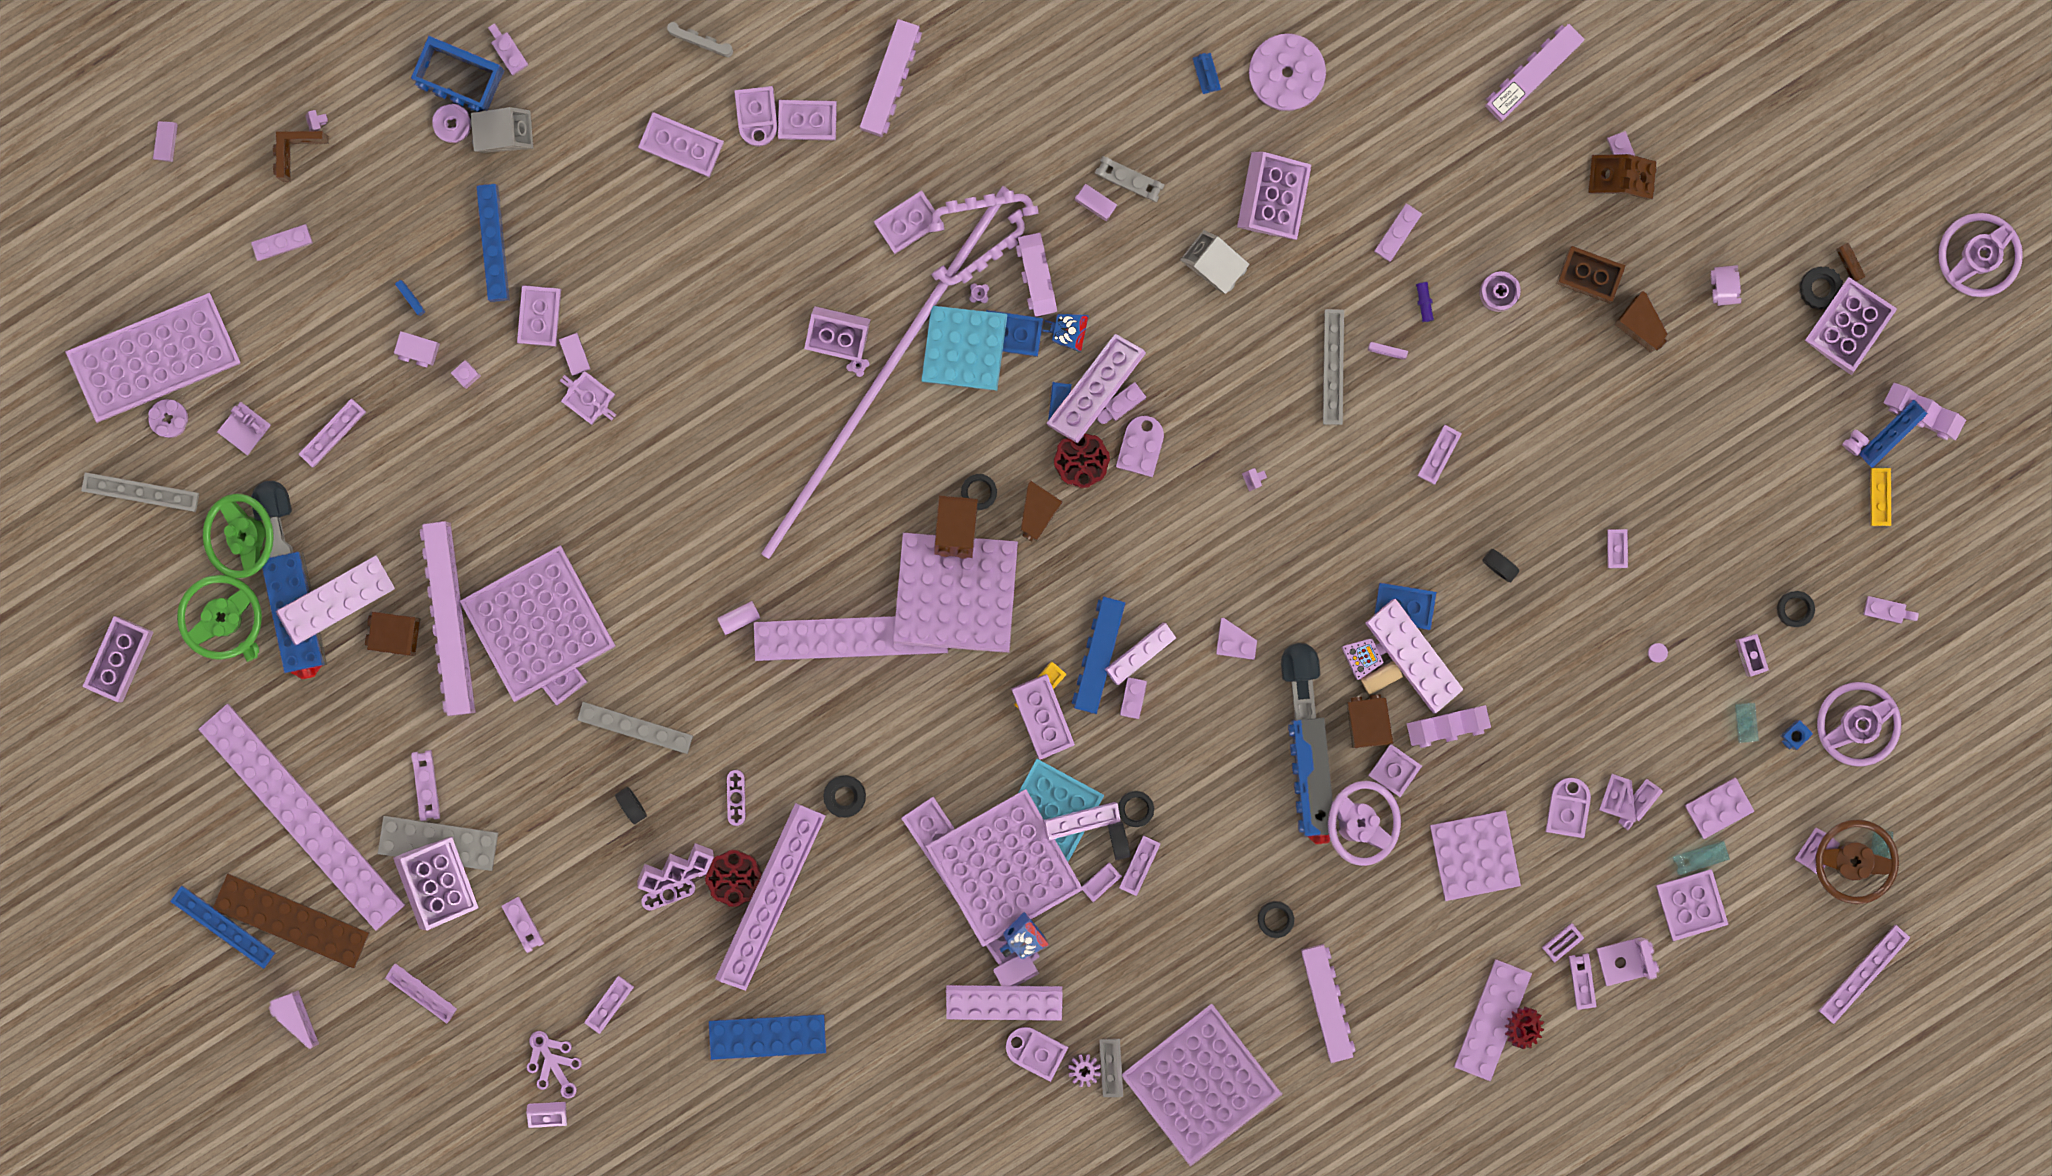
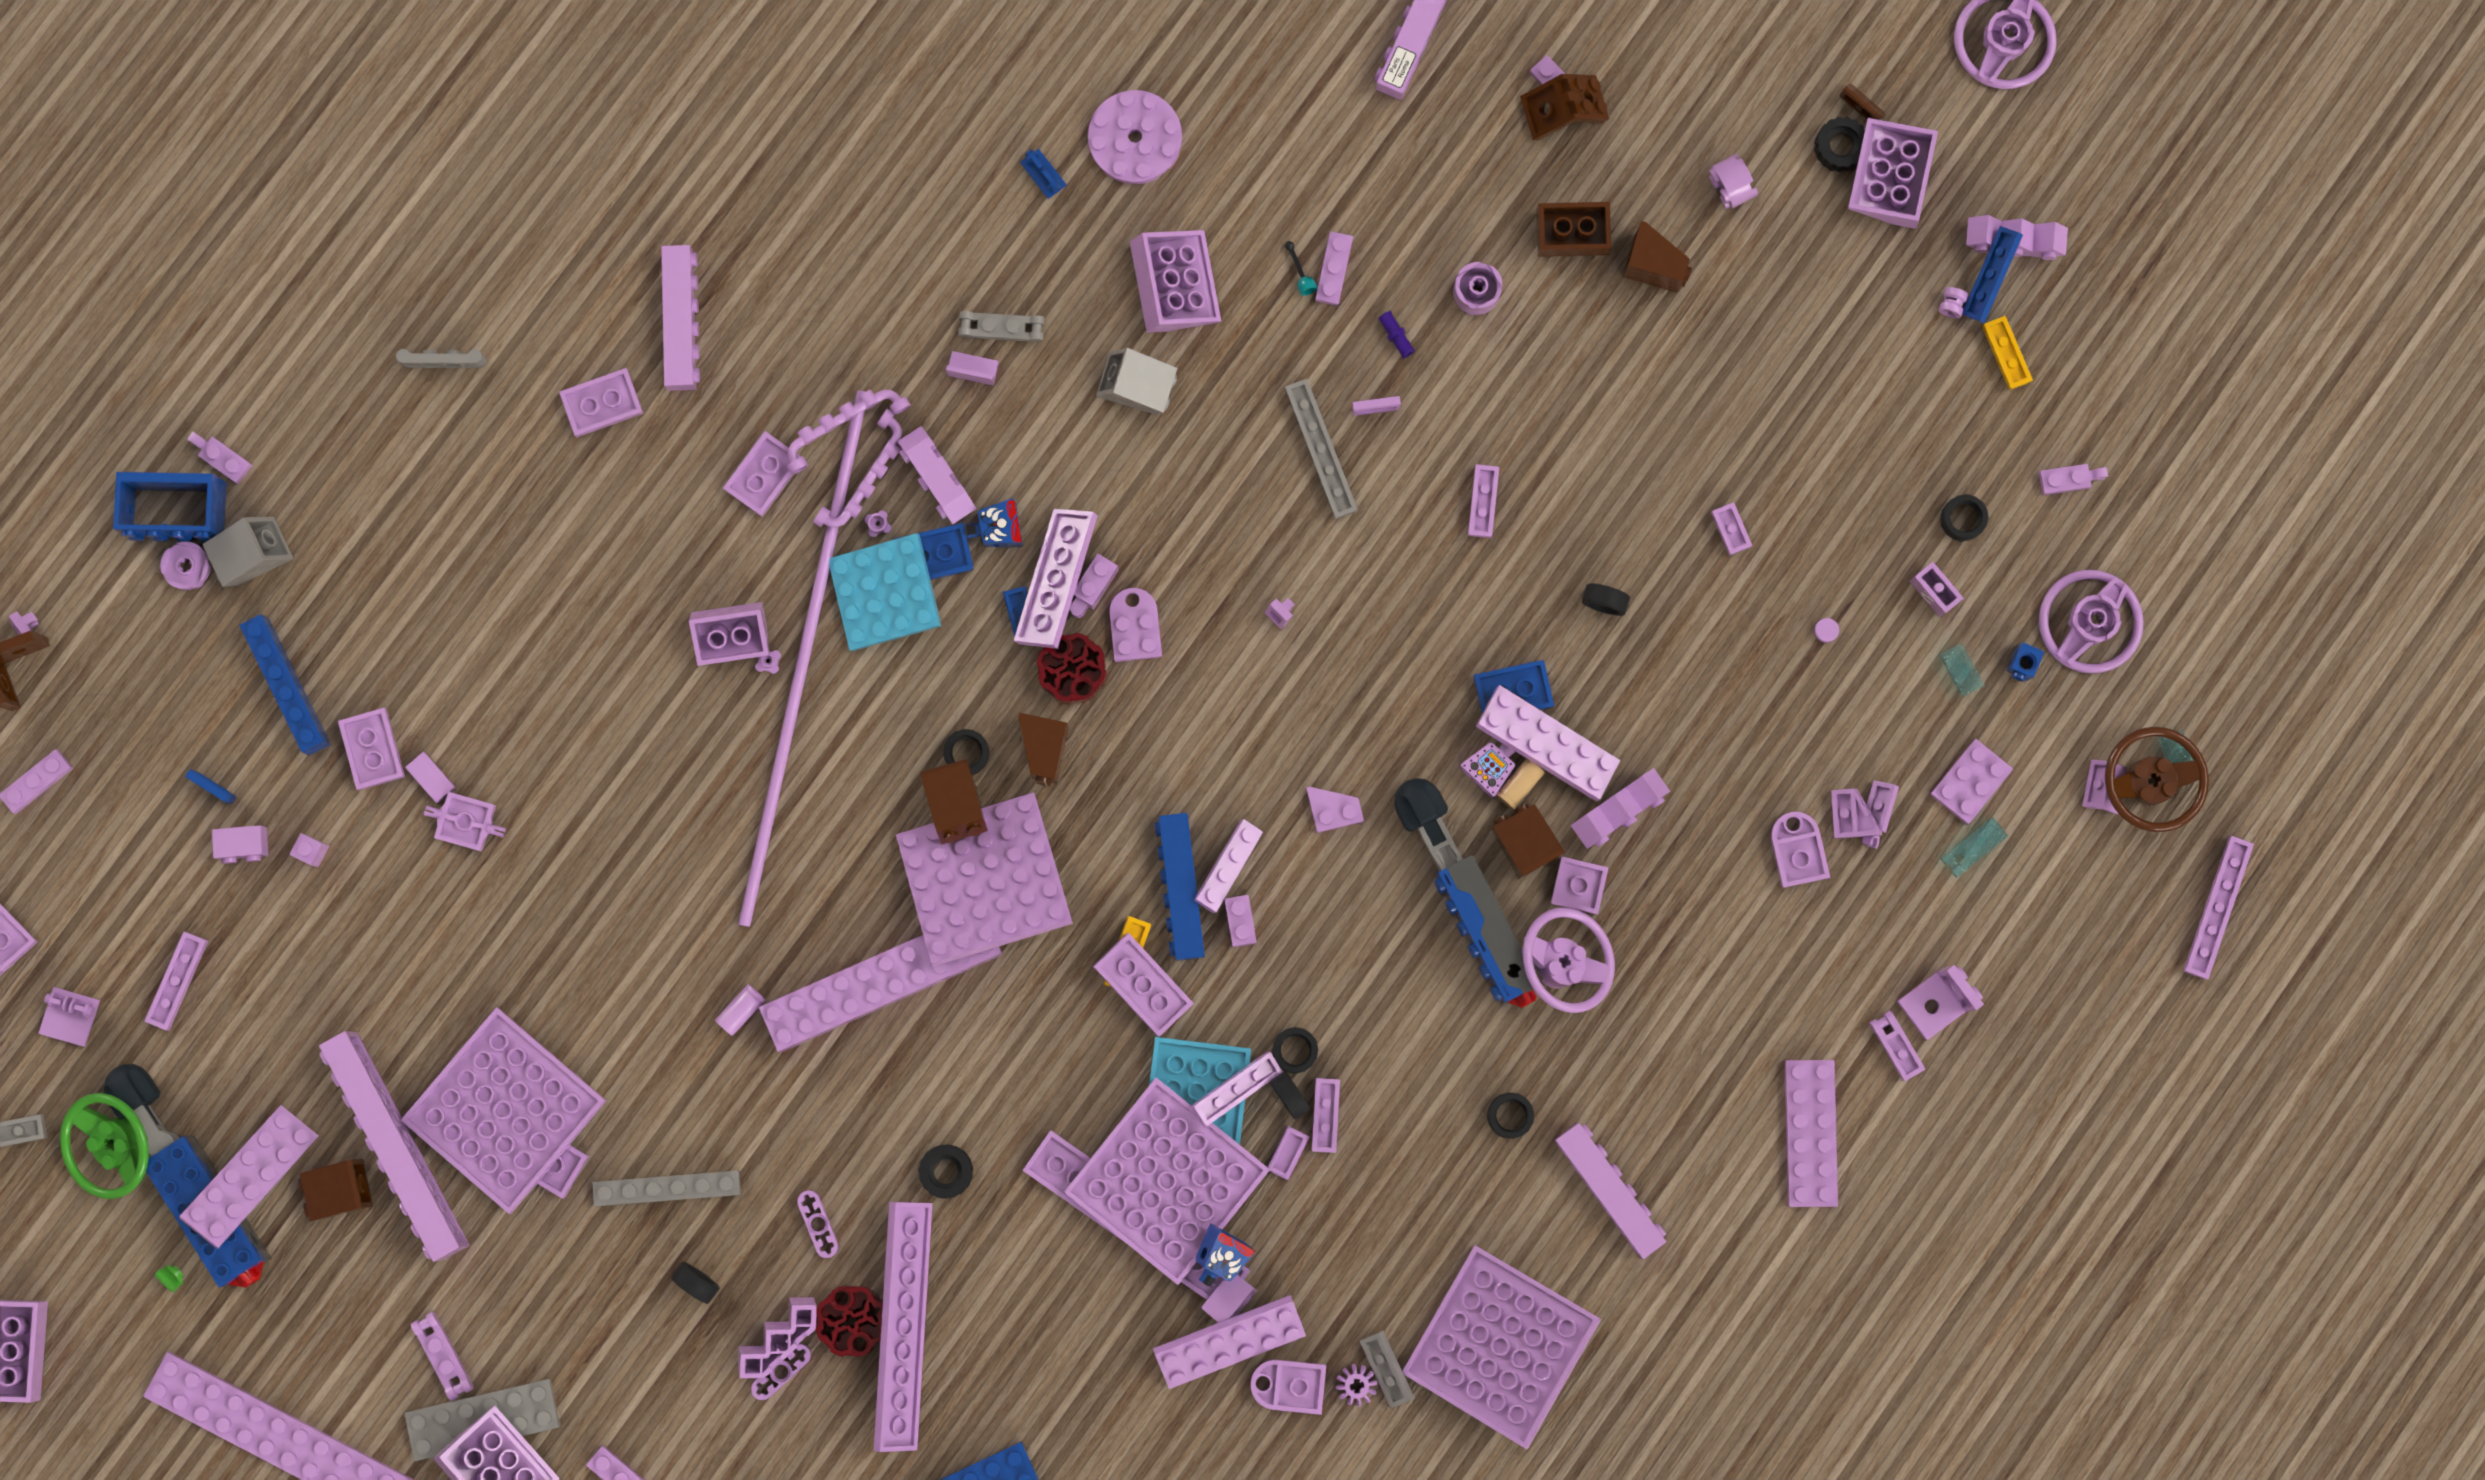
camera: 25 degrees left, 5 degrees down
(210, 625) = (112, 1265): bright green piece -> none
(681, 144) = (464, 487): lavender plate -> none
(756, 113) = (539, 417): lavender plate -> none
(1371, 236) = (1306, 284): none -> hinge
(1475, 855) = (1712, 948): lavender plate -> none
(1531, 1021) = (1852, 1127): dark red gear -> none
(1557, 937) = (1853, 1032): lavender tile -> none
(1692, 905) = (1986, 906): lavender plate -> none

